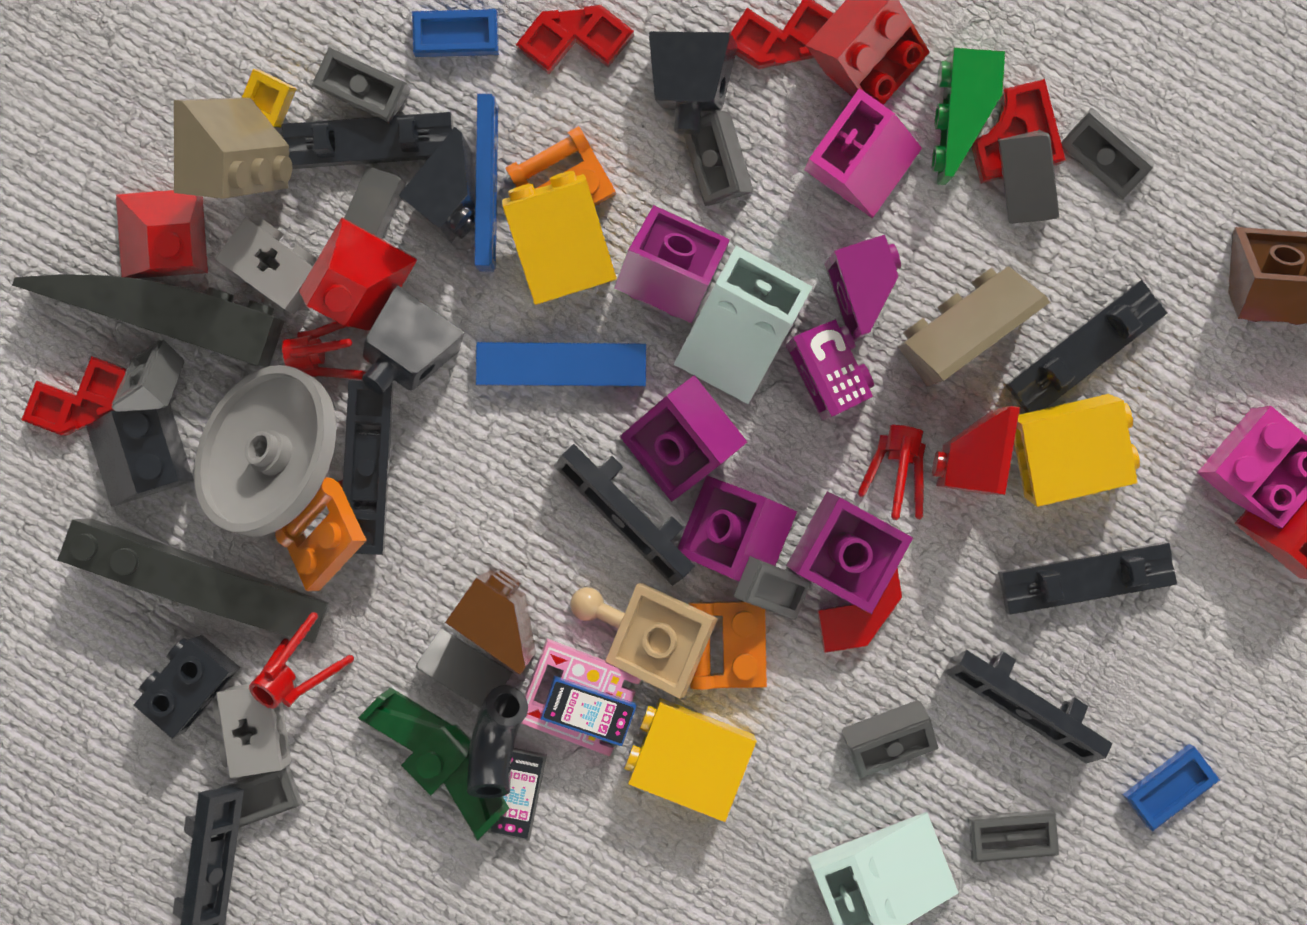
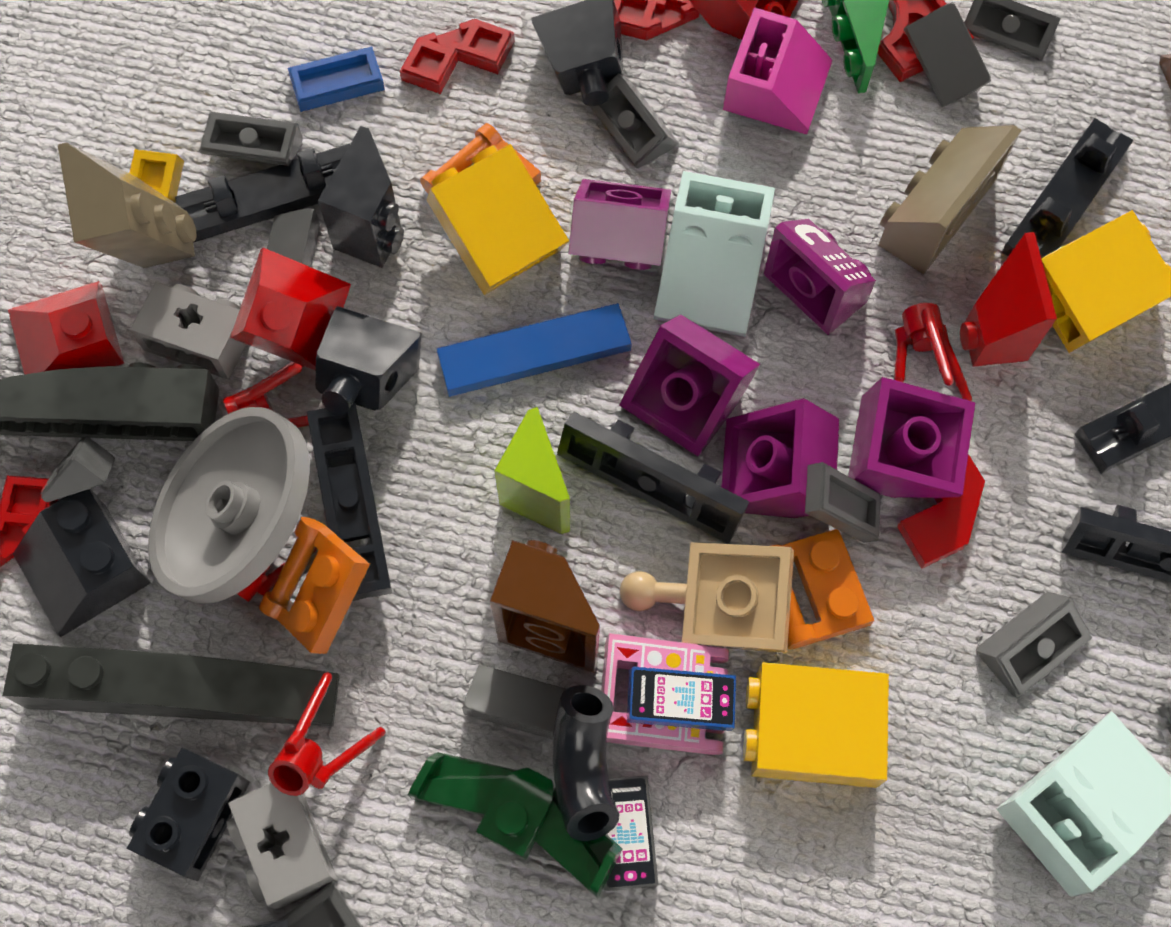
camera: 15 degrees left, 20 degrees down
(486, 183) = (405, 197): blue tile -> none
(522, 493) = (530, 477): none -> lime slope
(862, 281) = (820, 173): magenta slope -> none

